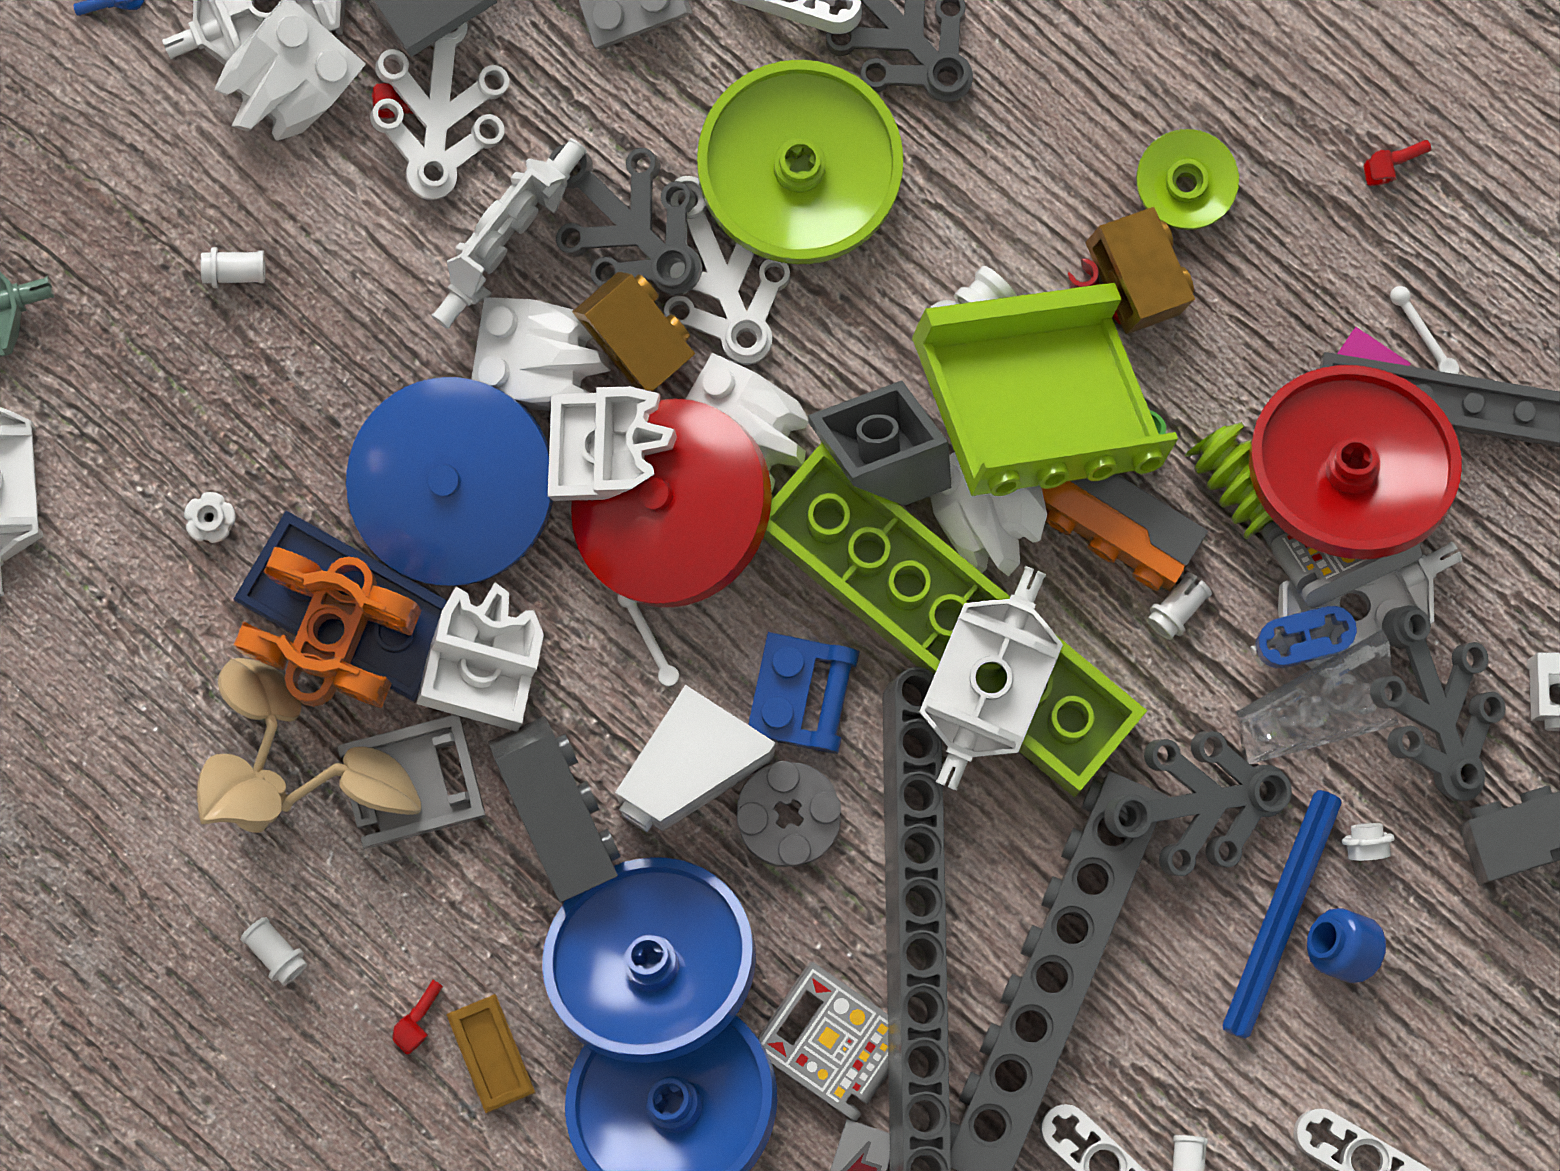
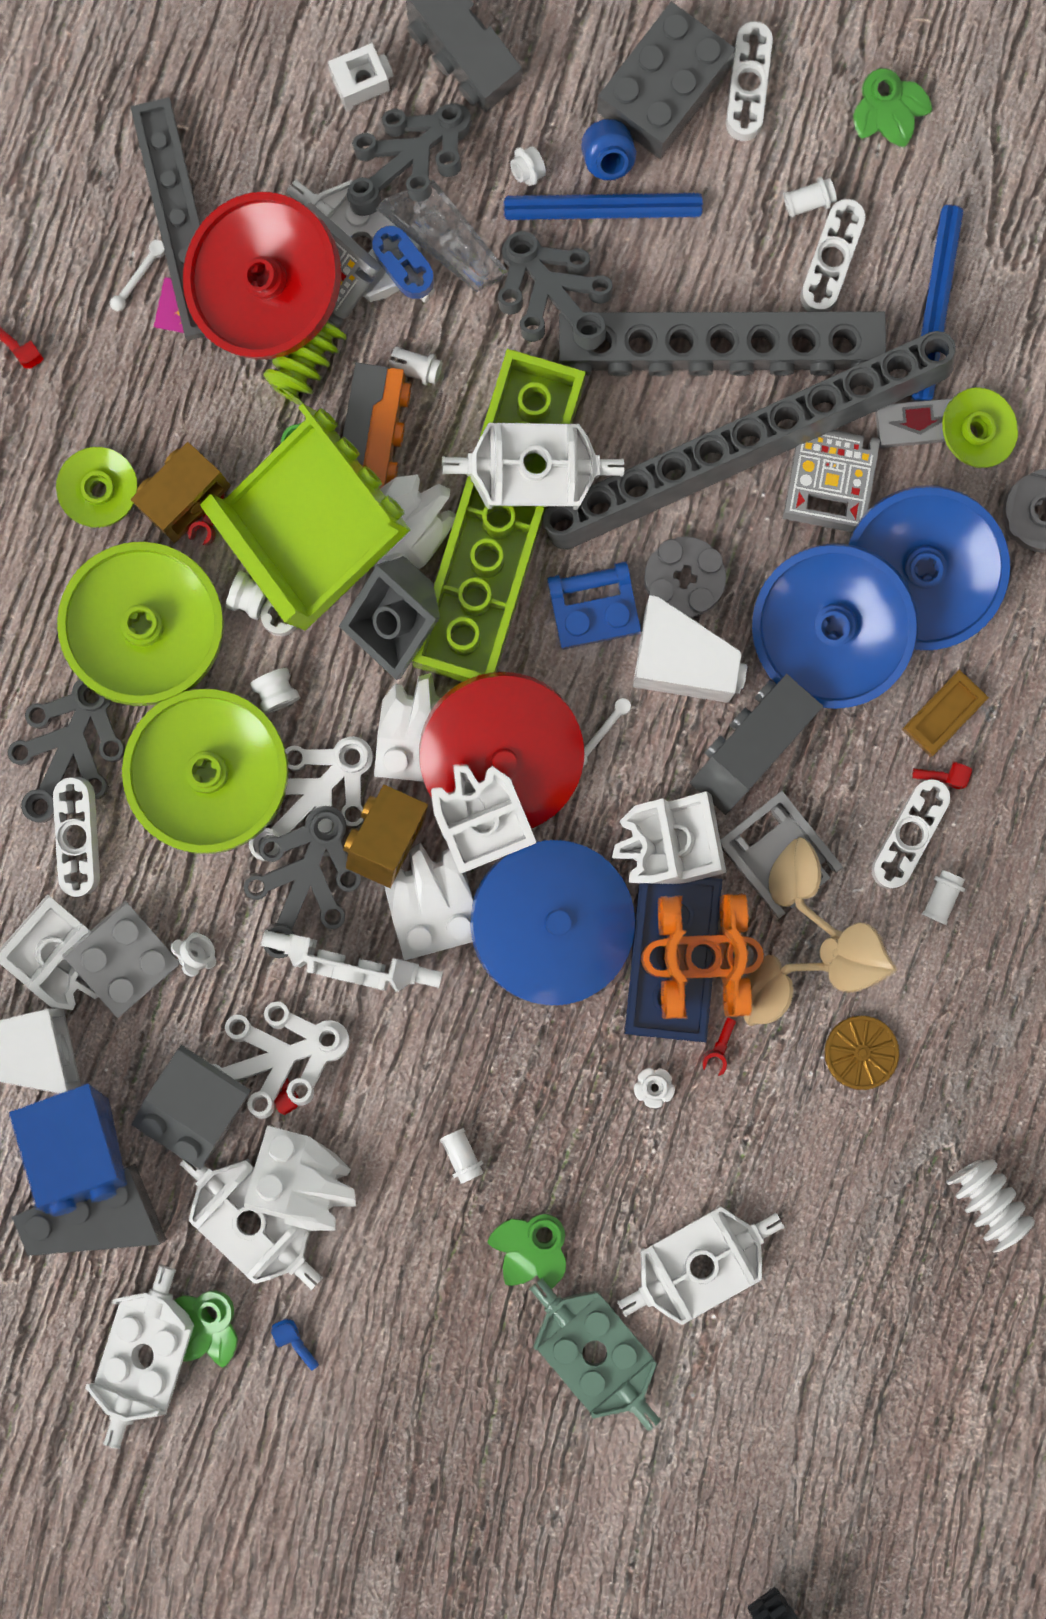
camera: 110 degrees left, 5 degrees up
(88, 295) = (528, 1255): none -> bright green plate
(138, 775) = (861, 1052): none -> pearl gold wheel
(216, 610) = (720, 1046): none -> red hand
(353, 907) = (916, 802): none -> white beam
(598, 80) = (201, 948): none -> white plate
(861, 281) = (275, 690): none -> white wheel
(1003, 160) = (140, 623): none -> lime dish
(1406, 1054) = (666, 79): none -> dark grey brick

